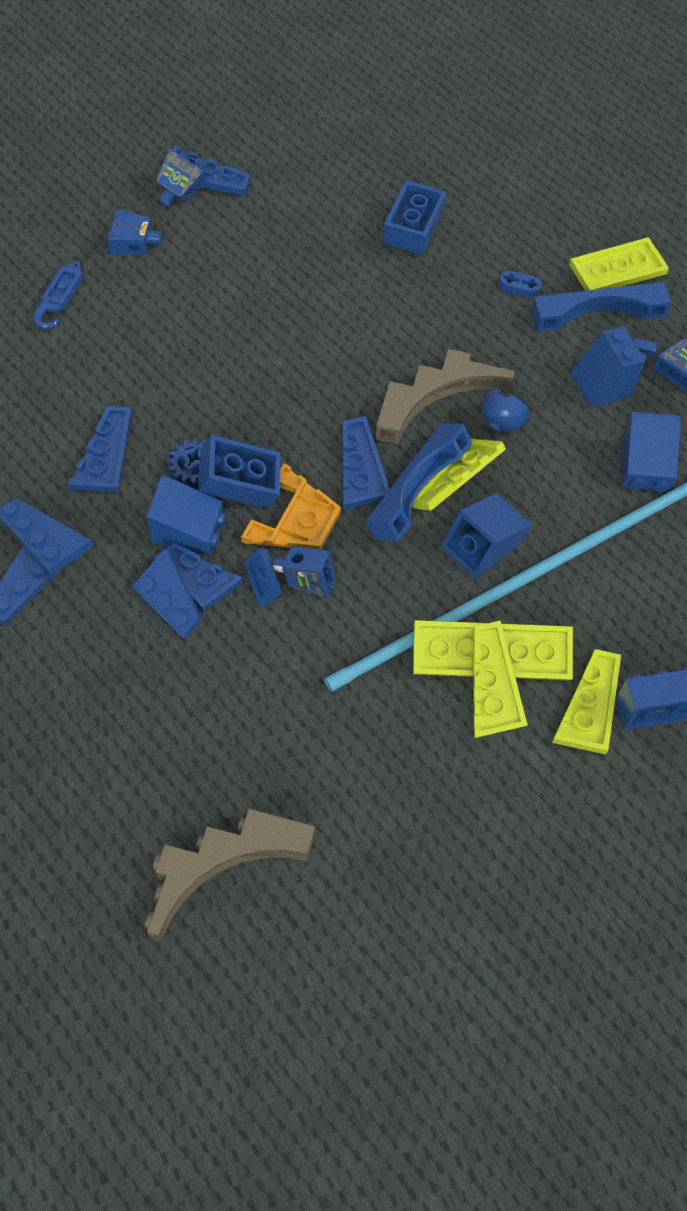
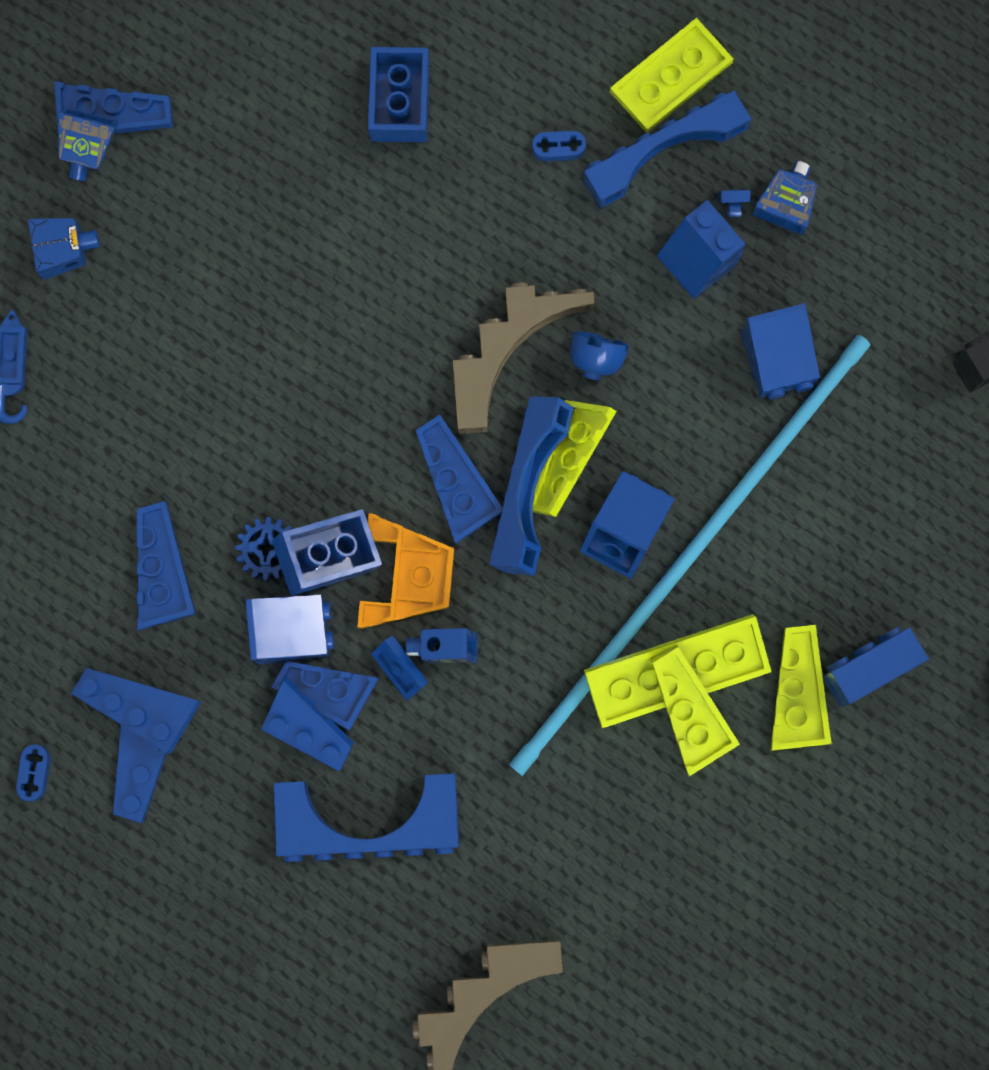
camera: 10 degrees left, 20 degrees up
(236, 702) = (305, 833): none -> blue arch

